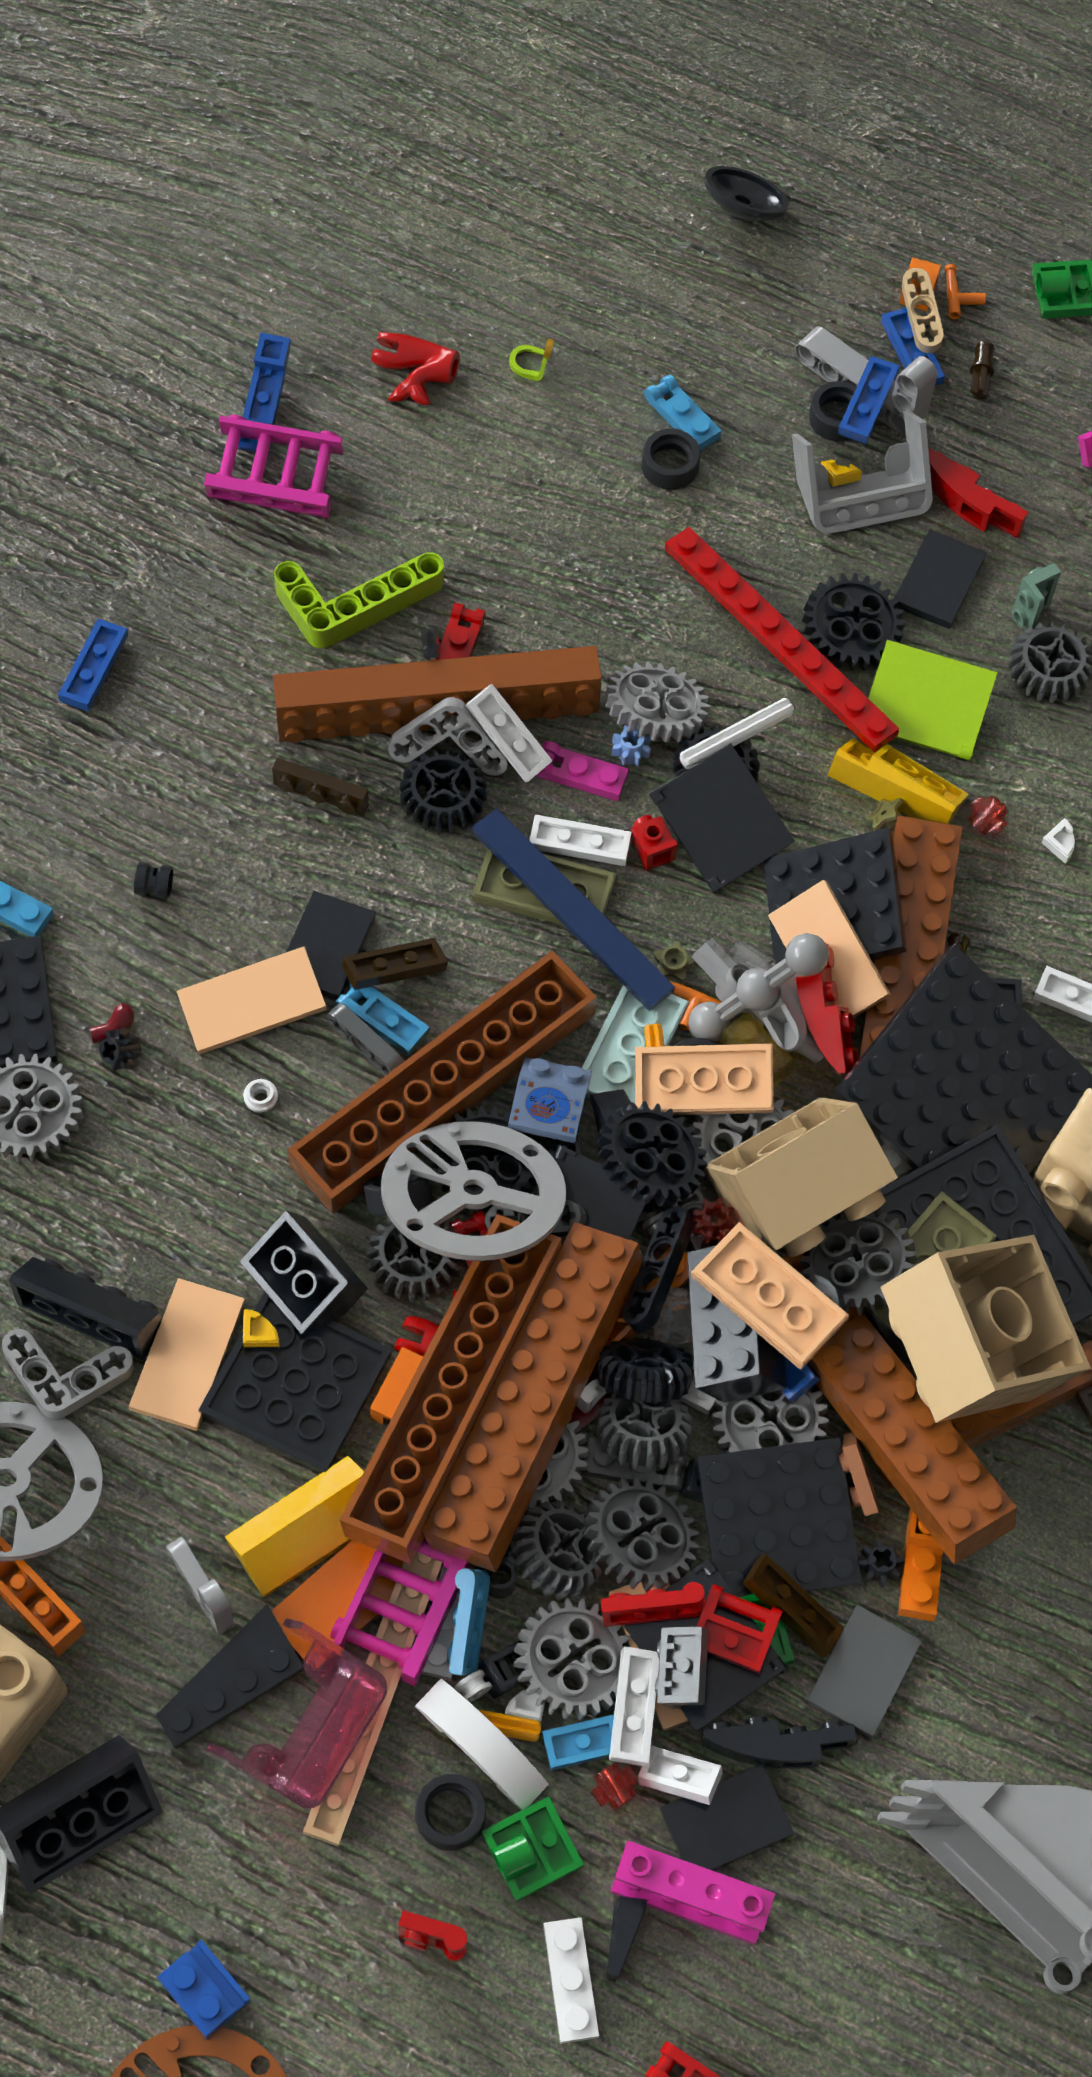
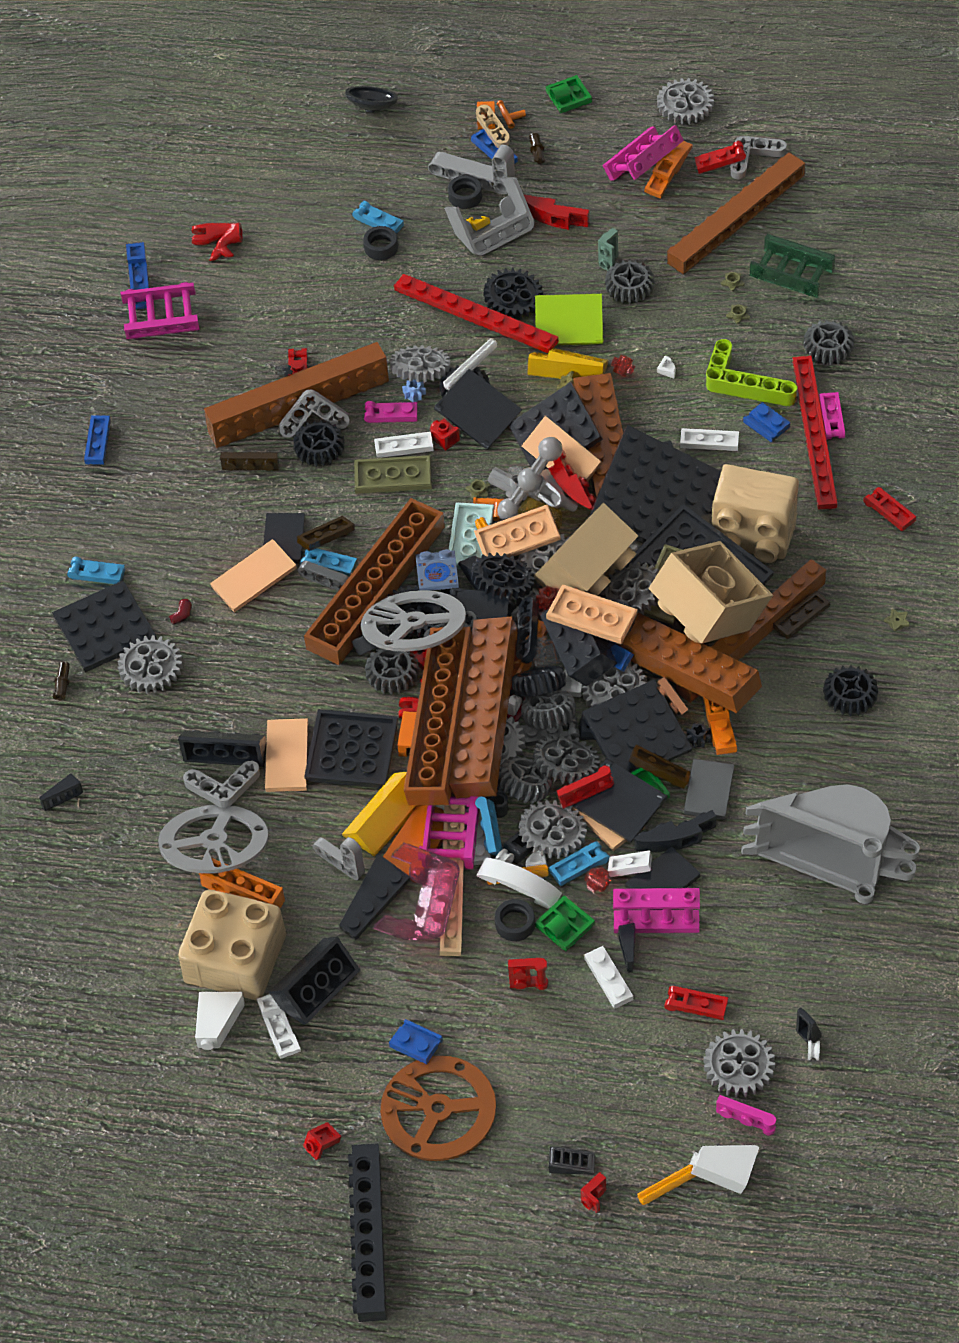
camera: 10 degrees left, 10 degrees down
(120, 1049) = (190, 620): black gear -> none
(153, 880) = (175, 534): black wheel -> none
(258, 1331) = (322, 729): yellow tile -> none
(260, 1086) = (276, 616): white plate -> none
(303, 1273) = (335, 694): black slope -> none
(357, 600) = (236, 367): lime beam -> none
(508, 733) = (345, 400): white plate -> none
(531, 374) = (284, 224): lime piece -> none
(573, 910) = (413, 478): dark blue tile -> none
(634, 1706) = (593, 837): white plate -> none
(682, 1666) = (611, 808): bracket -> none
(733, 1640) = (633, 789): red plate -> none
(868, 399) = (480, 179): blue plate -> none
(939, 579) = (552, 259): black tile -> none

